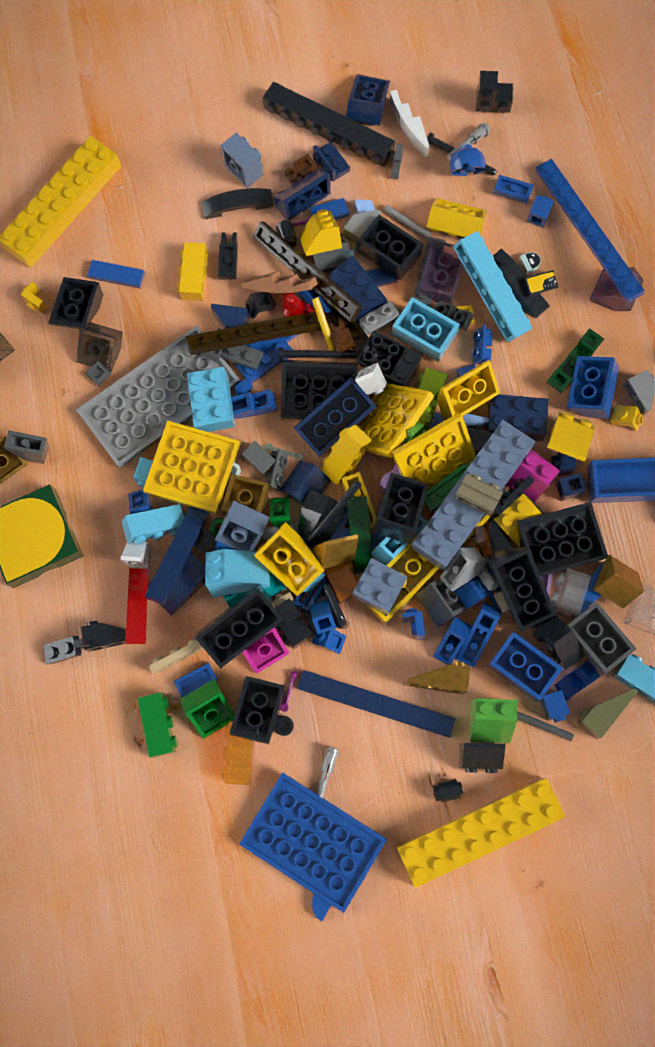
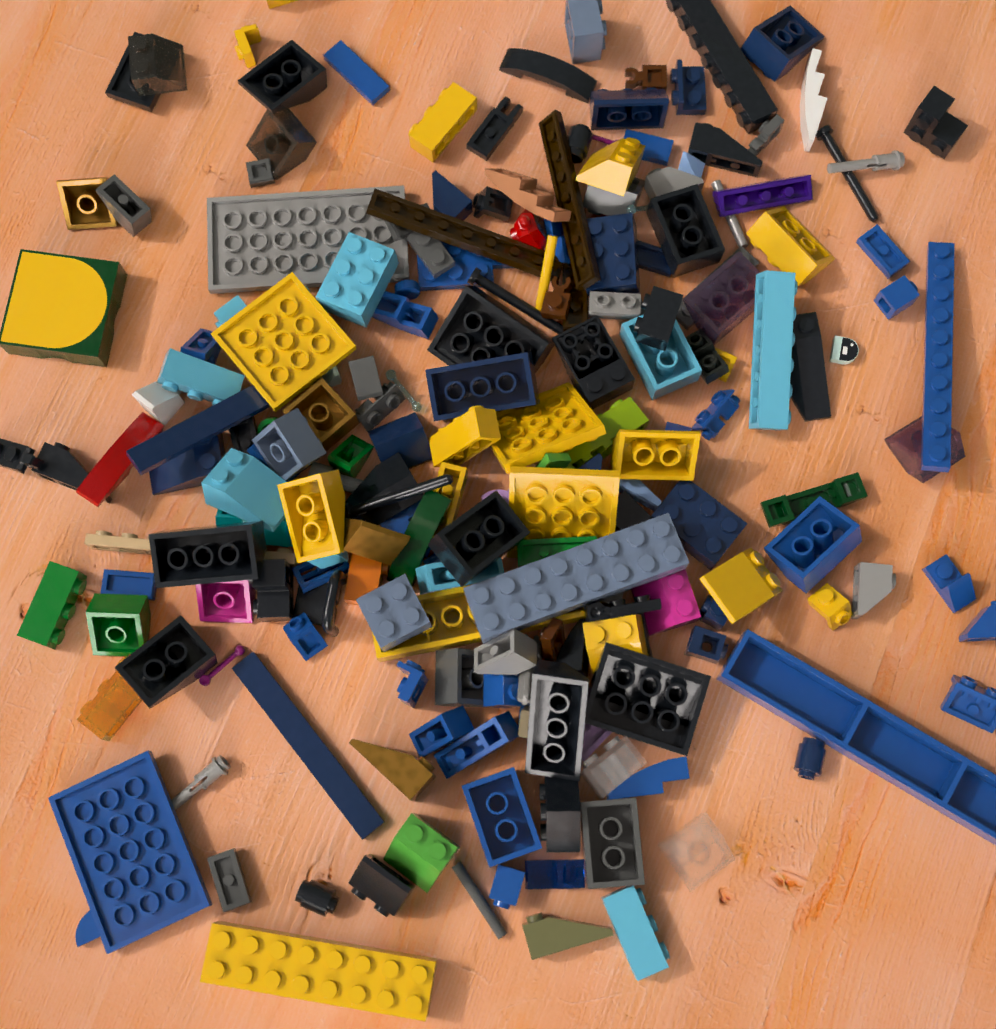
camera: 30 degrees right, 0 degrees up
(284, 726) = (189, 700): black tile -> none
(322, 617) = (309, 605): blue brick -> none
(371, 379) = (552, 370): white slope -> none
(377, 186) = (721, 151): none -> black slope
(386, 817) = (229, 880): none -> dark grey plate
(414, 308) = (659, 318): none -> black brick
(419, 198) = (763, 195): none -> dark purple slope
(467, 161) = (846, 184): blue cylinder -> none
(479, 494) = (575, 581): dark tan brick -> none
(540, 283) = (836, 382): slope -> none
(618, 582) = (679, 792): pearl gold slope -> none

